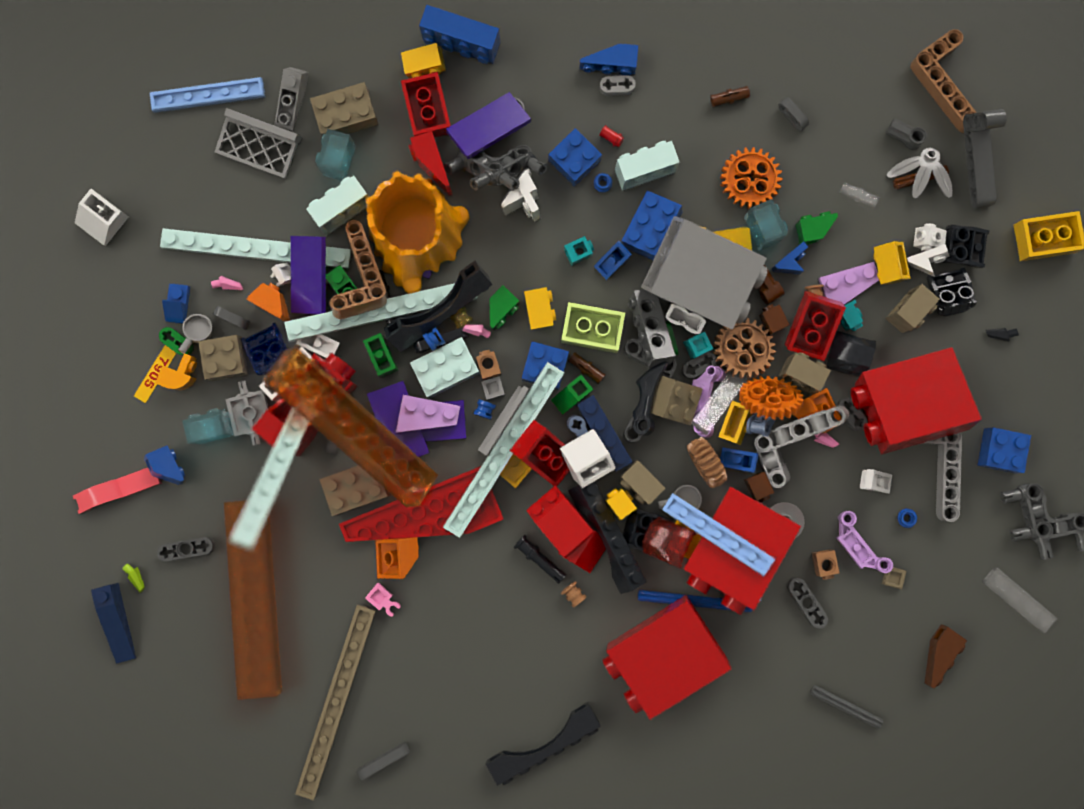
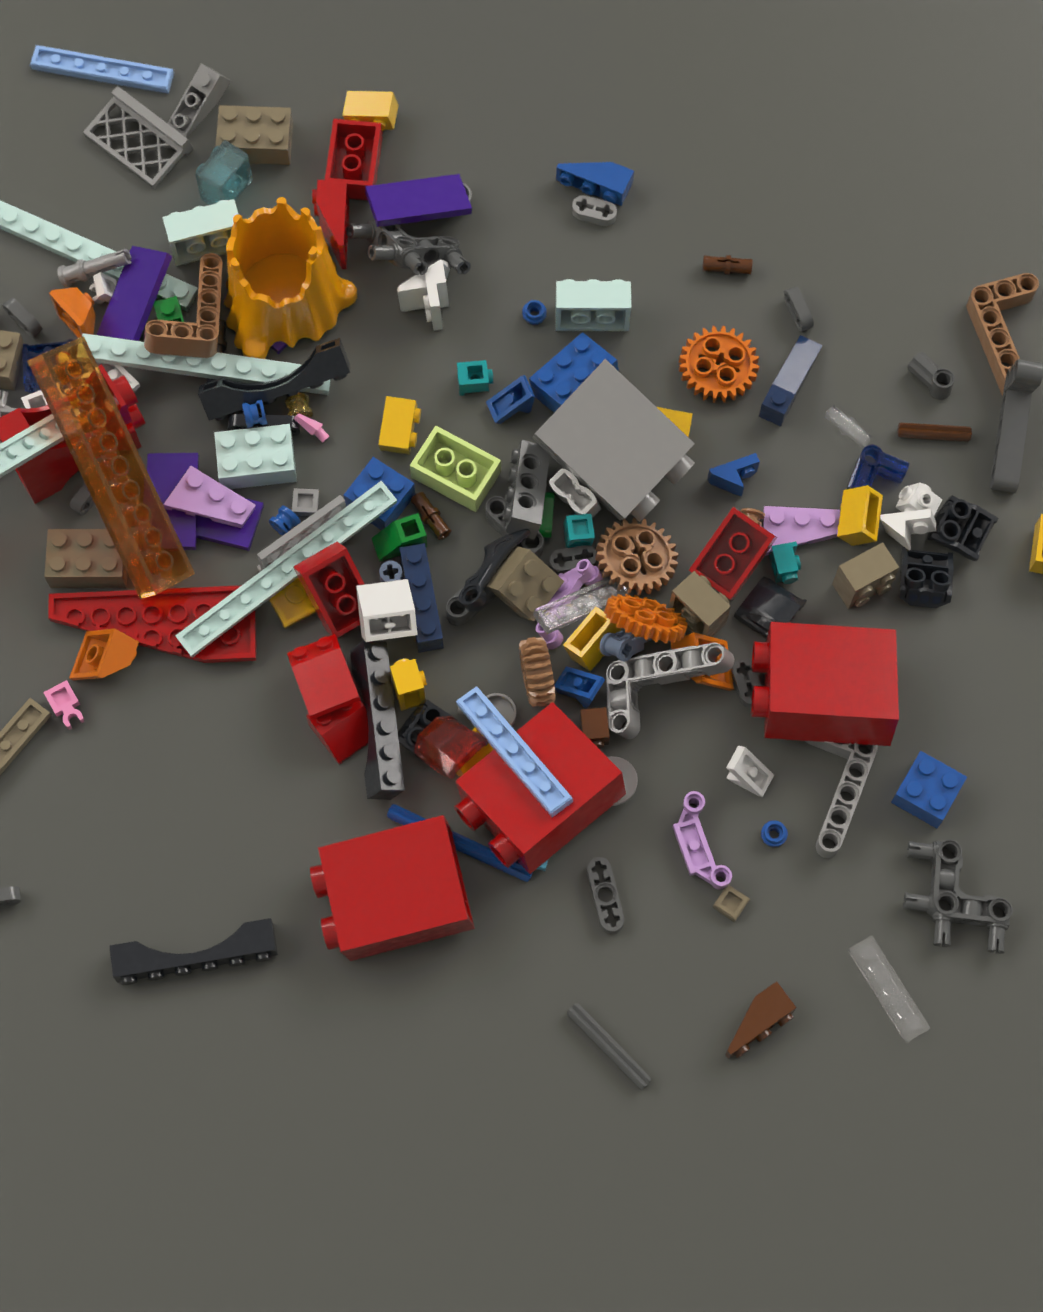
camera: 20 degrees right, 15 degrees down
(226, 283) = (33, 279): bright pink bar -> none
(262, 266) = (85, 269): none -> light grey pin
(380, 355) = (182, 415): green brick -> none
(460, 34) = (425, 93): blue brick -> none
(488, 373) = (310, 480): medium nougat brick -> none
(501, 305) = (353, 410): green slope -> none
(532, 553) = (276, 713): black pin -> none
(573, 594) = (307, 779): medium nougat bush -> none
(574, 157) = (510, 271): blue brick -> none
(611, 136) = (568, 267): red pin -> none
(641, 482) = (444, 668): dark tan brick -> none
(766, 224) = (715, 418): clear light blue brick -> none
(770, 289) = (694, 496): reddish brown piece -> none
(773, 319) = (687, 535): reddish brown brick -> none
(806, 173) = (789, 381): none -> slope
(814, 229) = (779, 446): green slope -> none
(819, 557) = (649, 841): medium nougat brick -> none
(826, 439) = (701, 700): bright pink bar -> none
(894, 216) = (885, 466): none -> clear blue piece
(922, 177) = (944, 416): light grey plant -> none
(1002, 333) = (976, 650): black bar -> none

